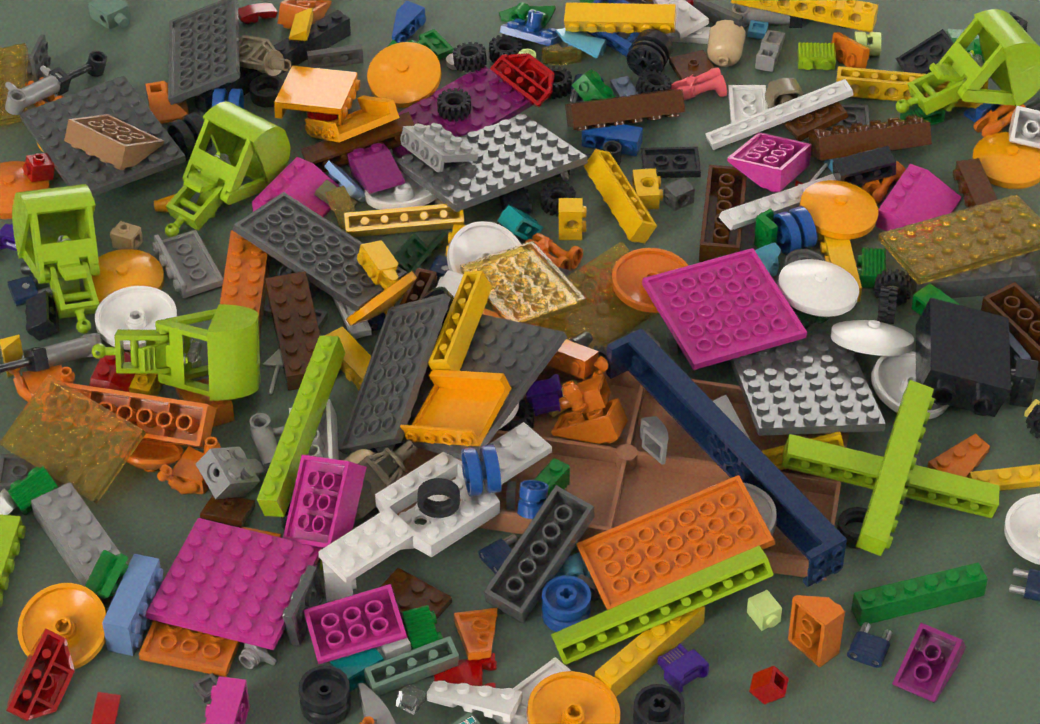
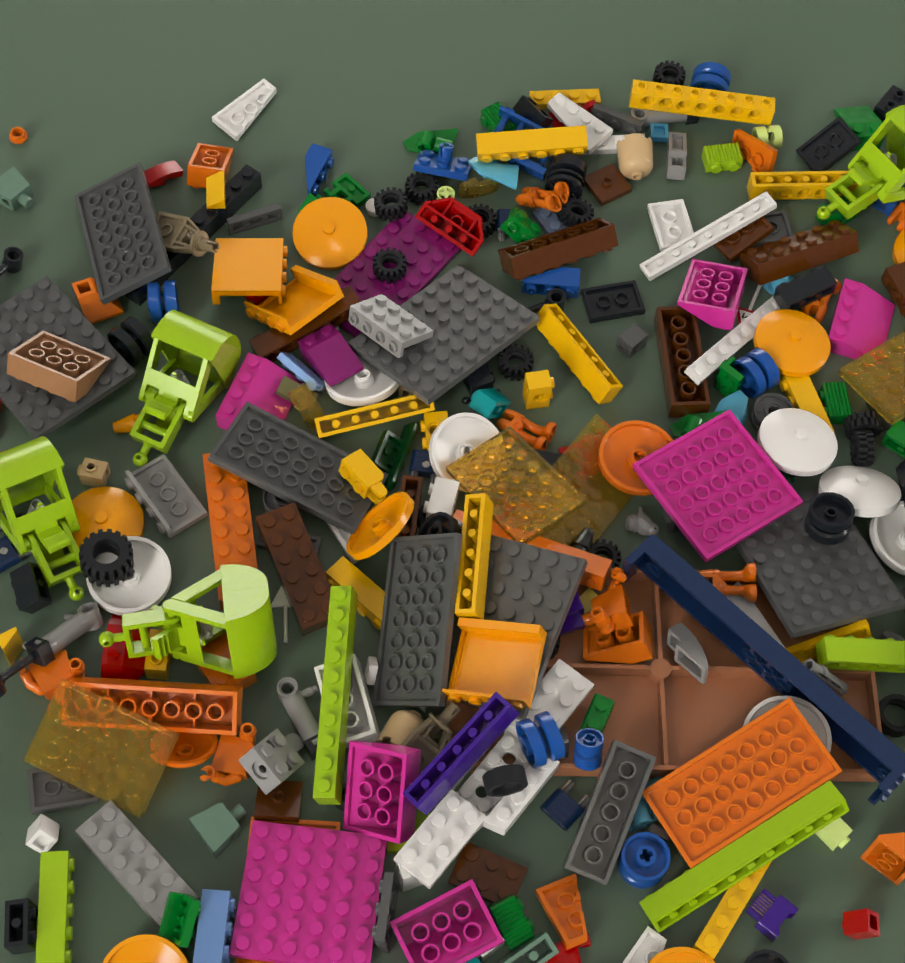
camera: 15 degrees left, 15 degrees up
(36, 484) = (73, 813): green brick -> none
(117, 294) = (102, 543): none -> black tyre
(165, 522) = (218, 826): none -> sand green torso
(262, 82) = (197, 280): black tyre -> none
(343, 421) = (371, 670): none -> white tile
(402, 469) = (461, 753): none -> dark purple brick
(626, 68) = (550, 200): none -> orange piece
(647, 186) = (599, 328): yellow brick -> none
(704, 82) = (608, 209): coral piece -> none
(731, 386) = (747, 575): none -> orange piece
(781, 91) = (705, 211): dark tan brick -> none
(804, 489) = (833, 681): none -> light grey pin
(828, 347) = (829, 518): none -> black wheel

